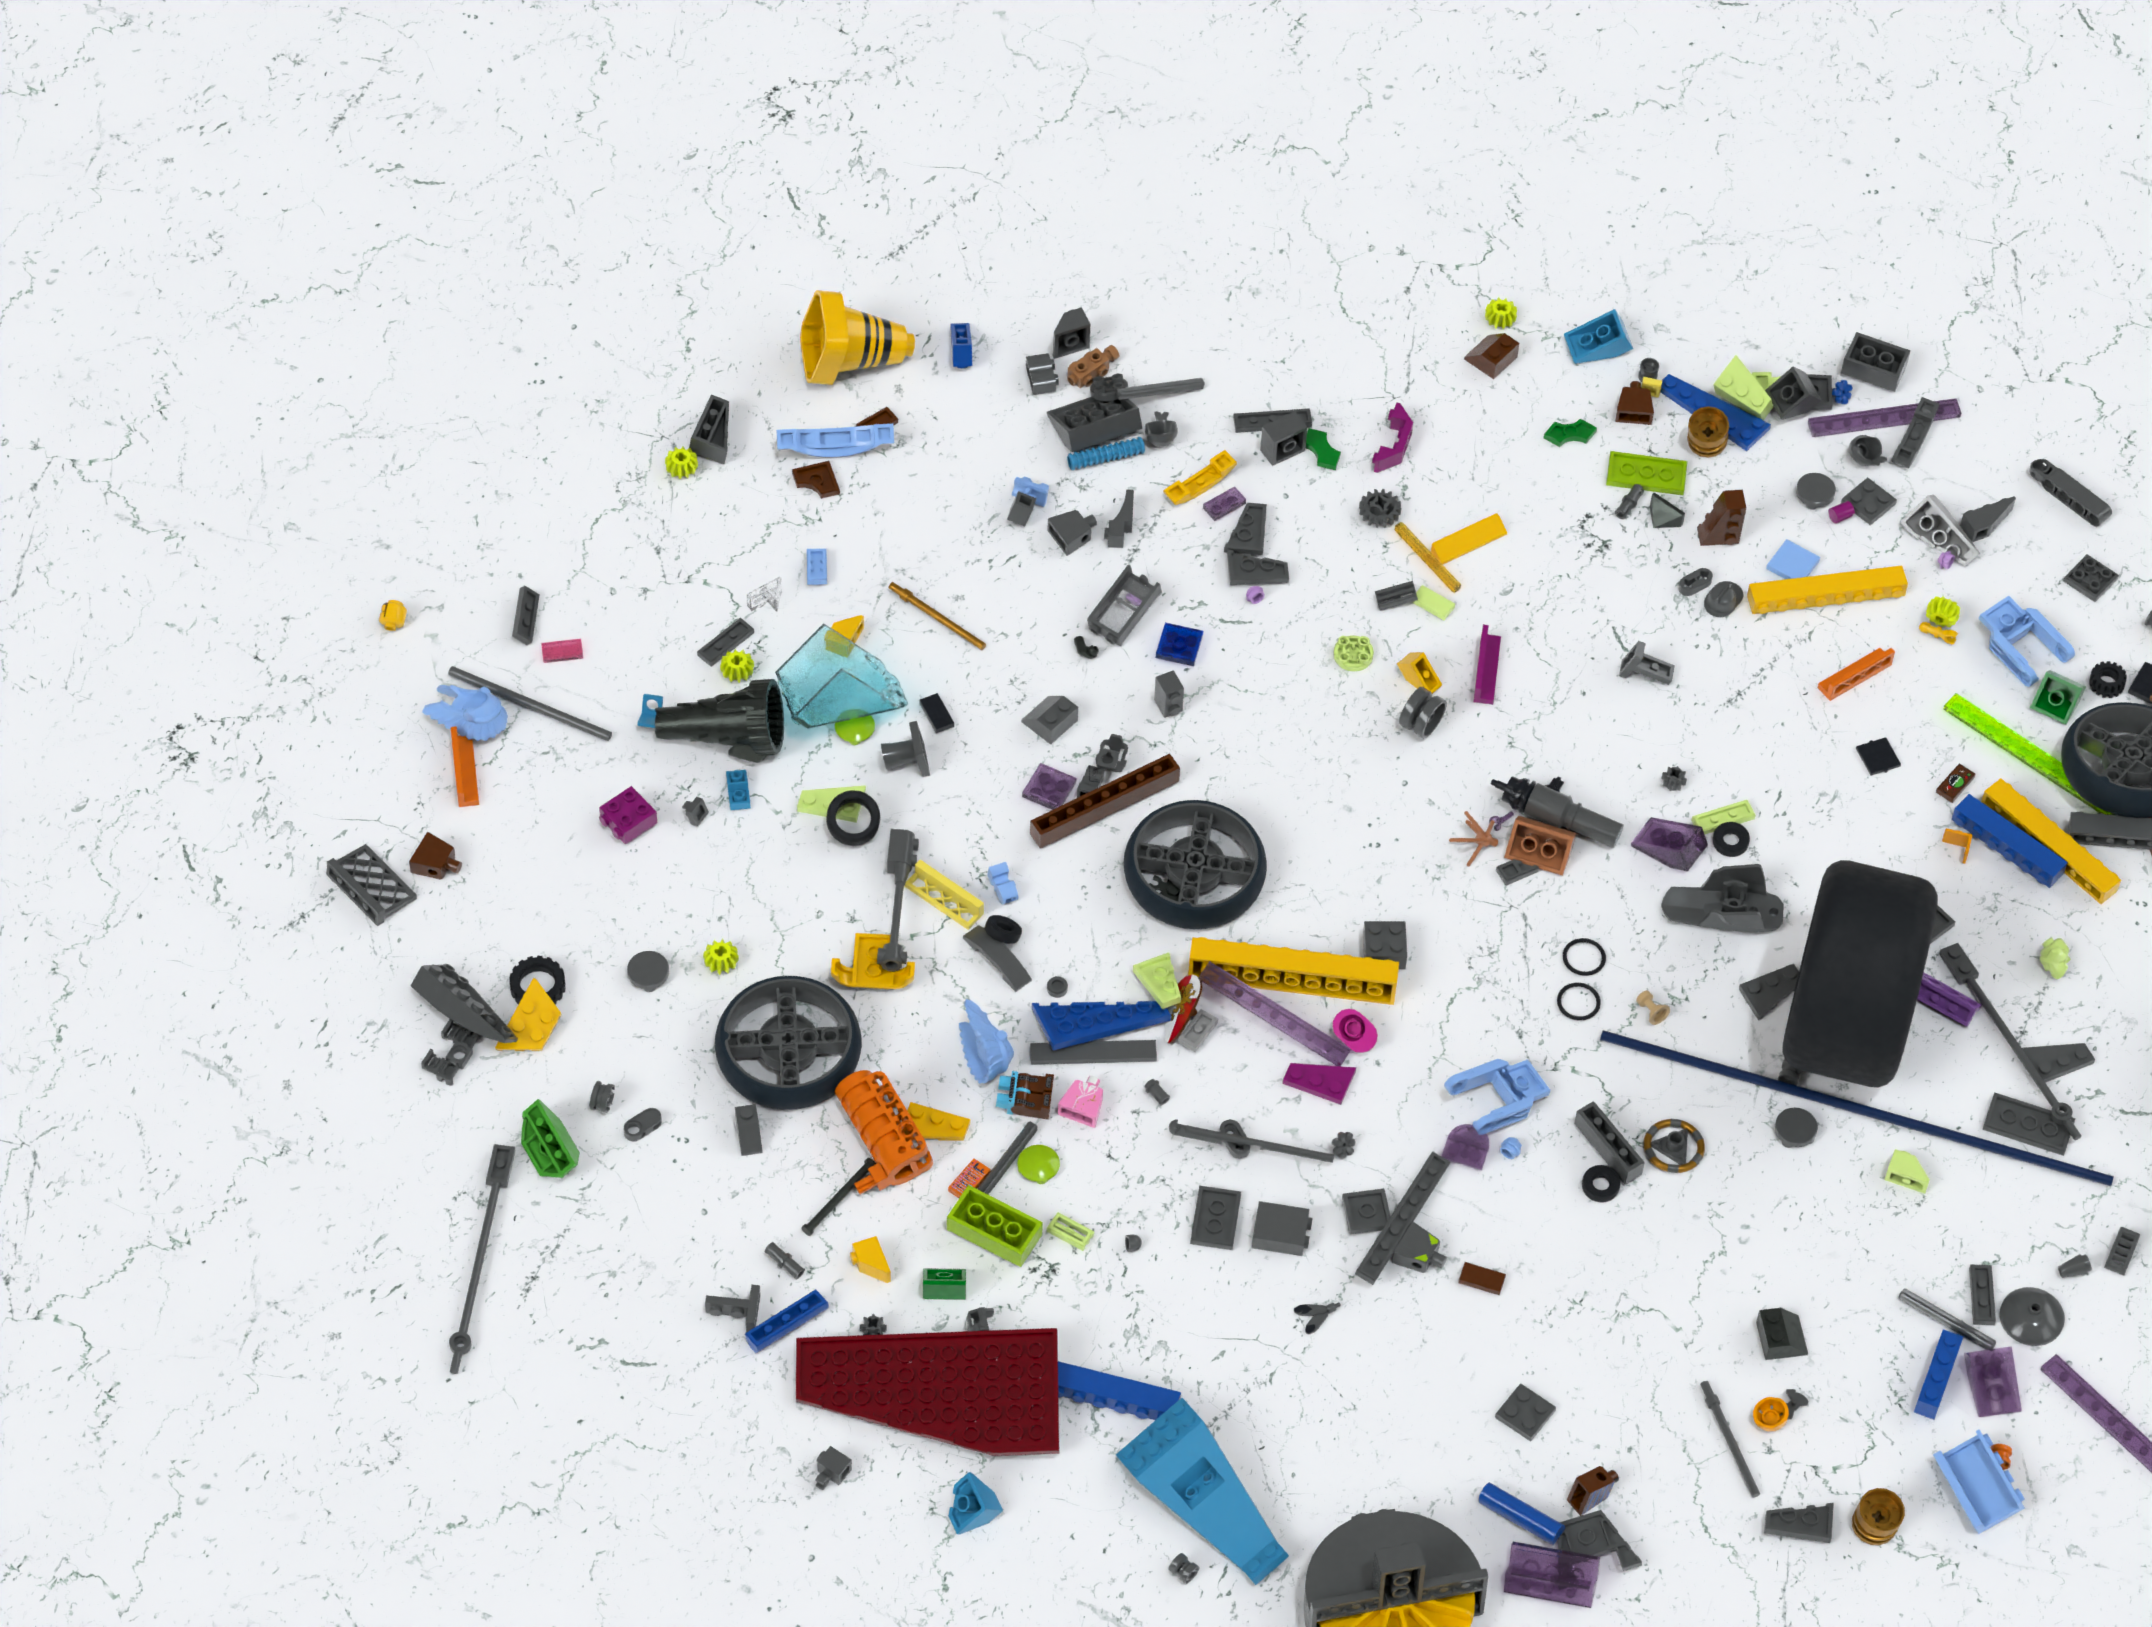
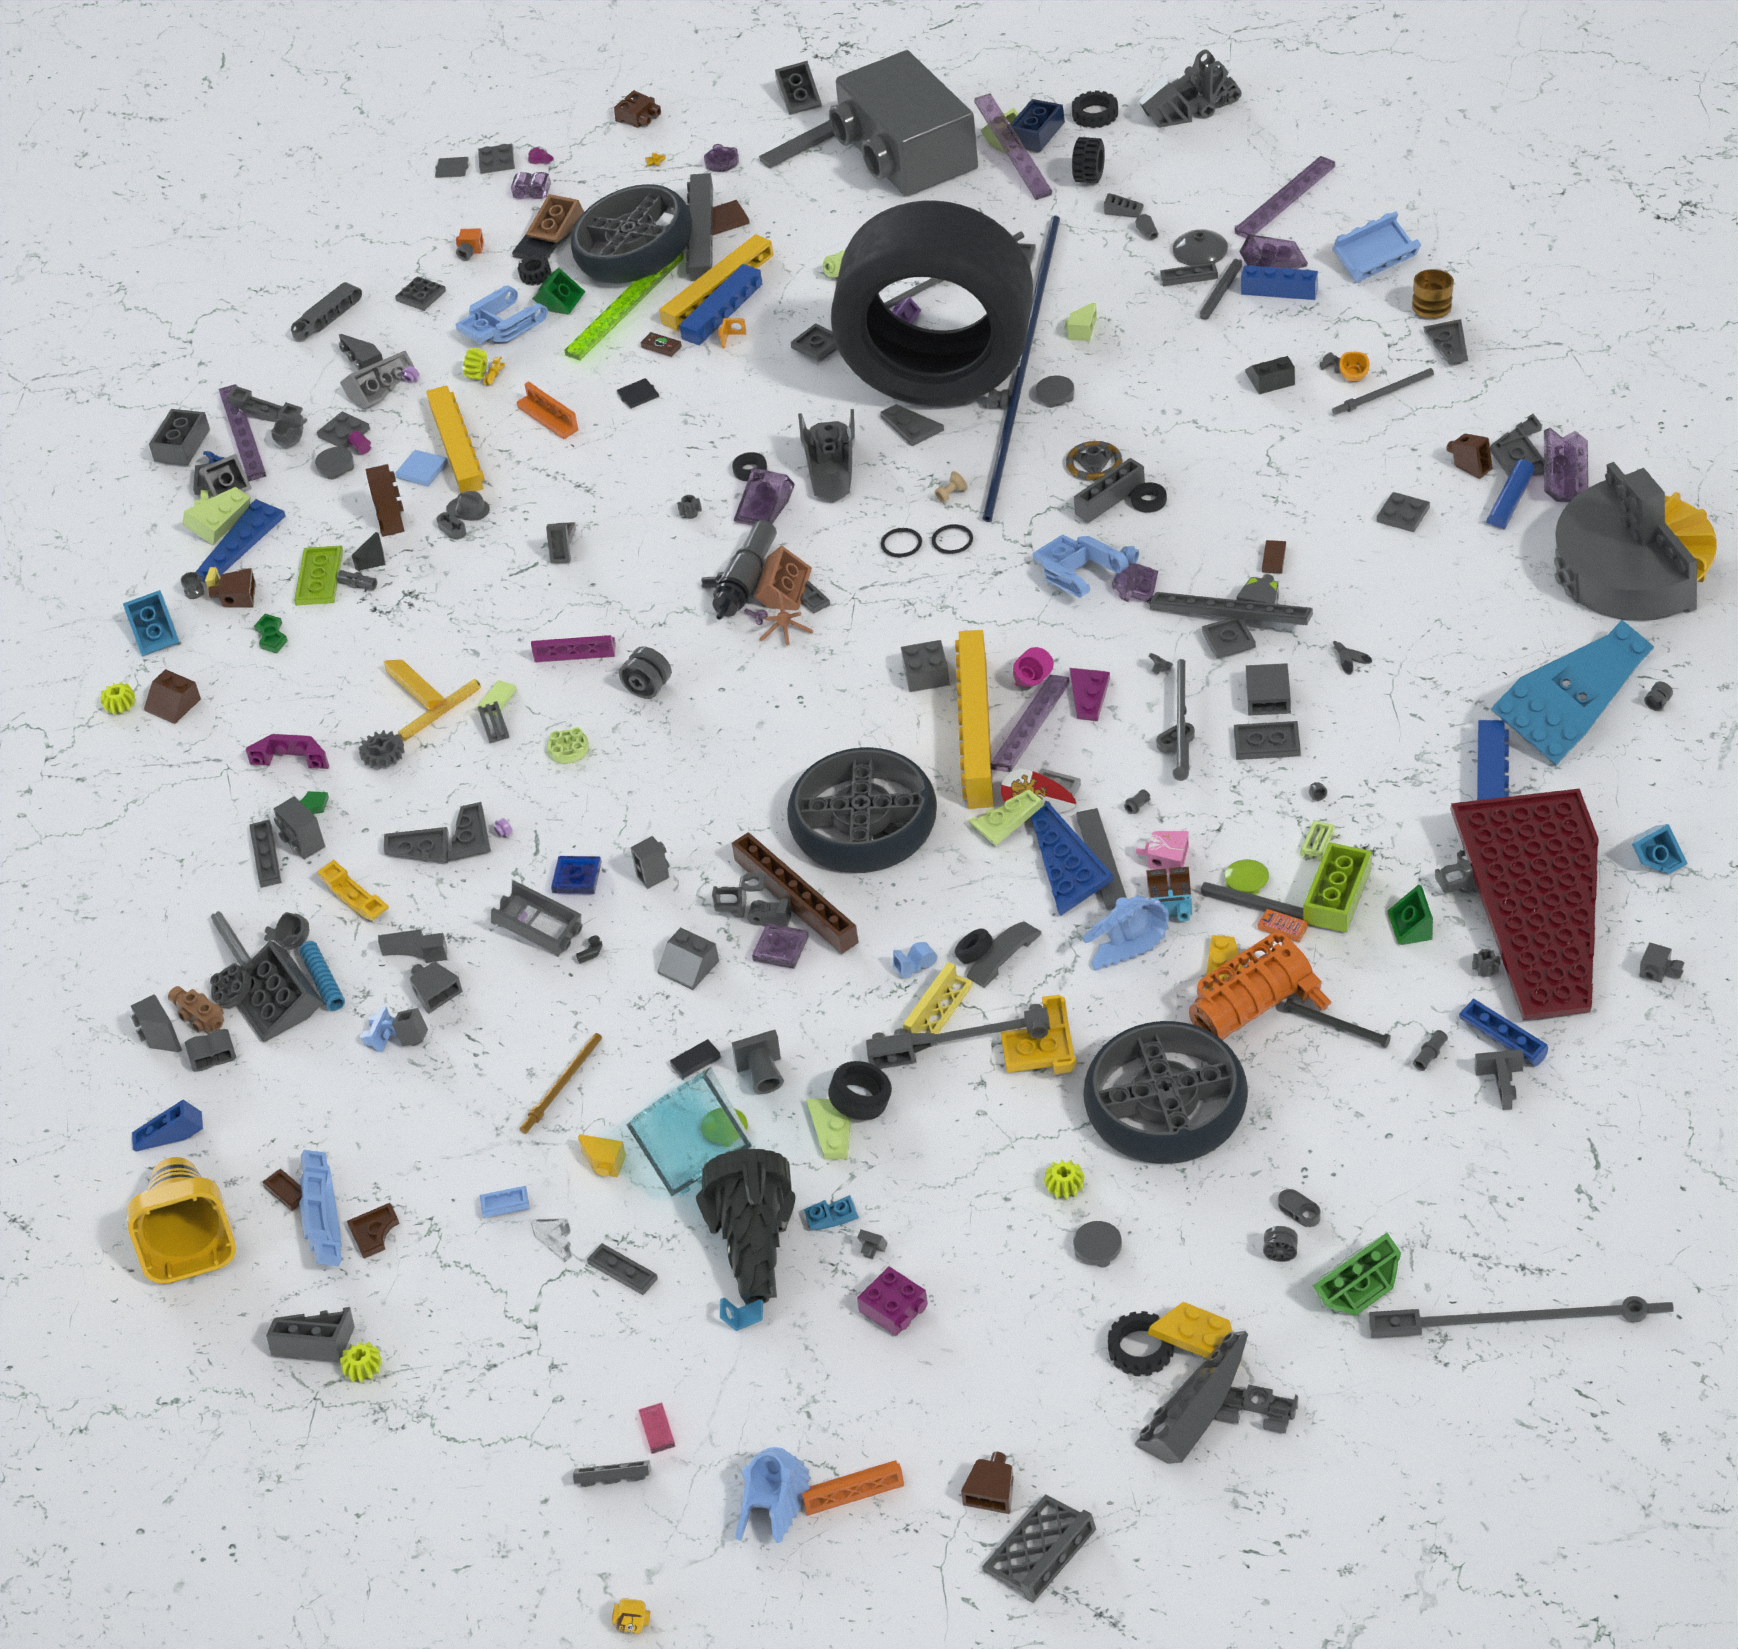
camera: 90 degrees left, 10 degrees down
(530, 703) = (740, 1445): dark grey piece -> none
(737, 665) = (659, 1245): neon yellow gear -> none
(748, 1129) = (1279, 1110): dark grey slope -> none
(870, 1259) = (1404, 979): yellow slope -> none
(1057, 987) = (1029, 900): dark grey tile -> none
(1224, 503) = (384, 869): clear purple plate -> none
(1419, 671) = (588, 691): yellow slope -> none
(1711, 423) = (274, 528): pearl gold wheel -> none
(1737, 812) = (724, 475): yellowish green tile -> none

